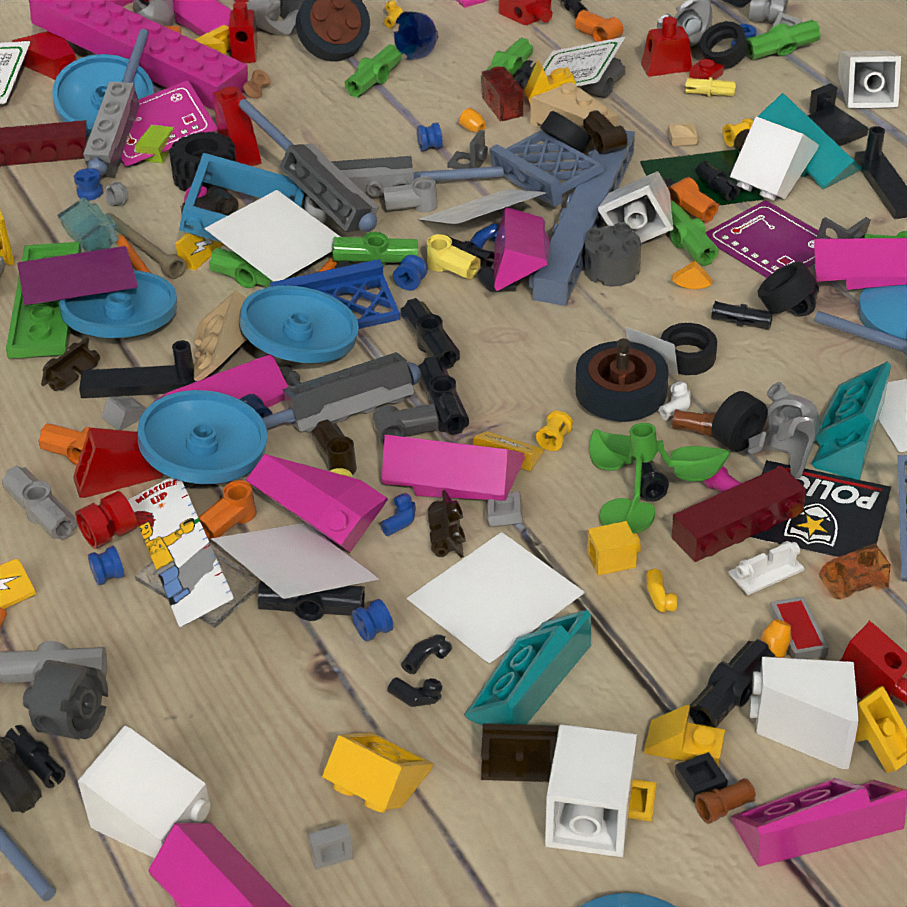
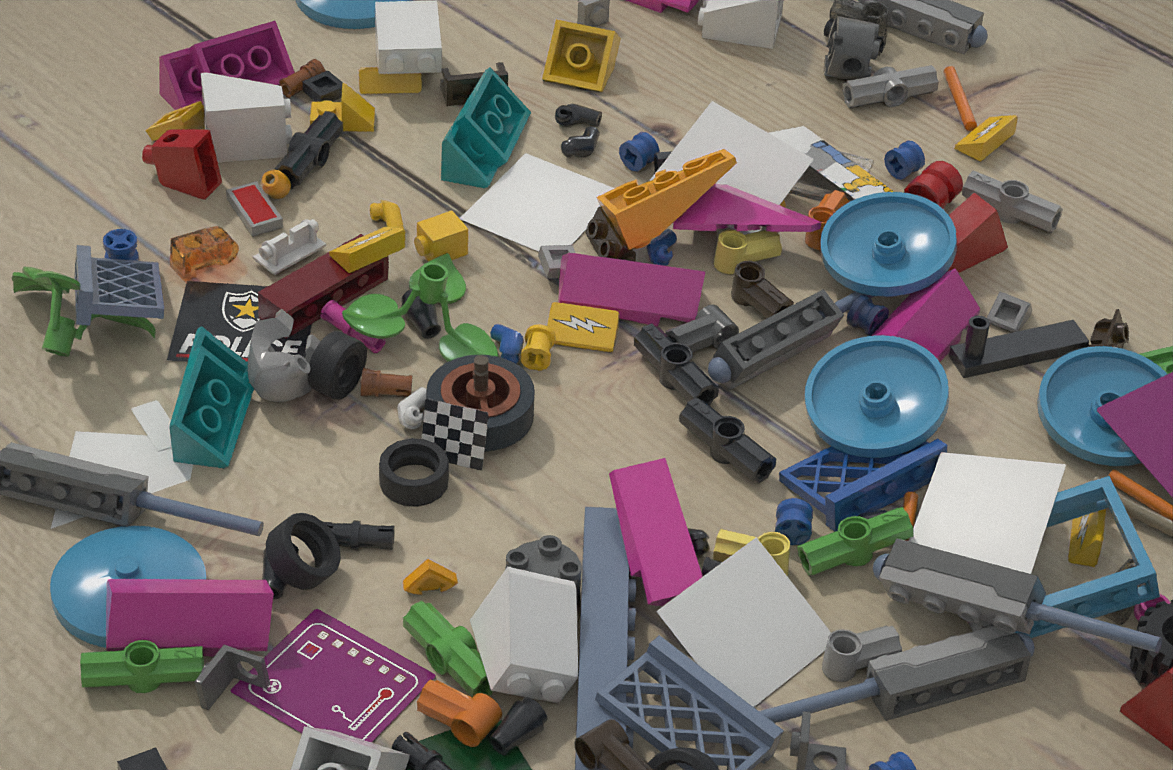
camera: 160 degrees right, 0 degrees up
(63, 441) = (1018, 261): orange piece -> none
(218, 335) = (970, 412): tan wedge -> none
(397, 501) = (650, 208): none -> light orange wedge
(576, 441) = (510, 342): none -> blue arm
(693, 507) = (369, 248): none -> yellow slope

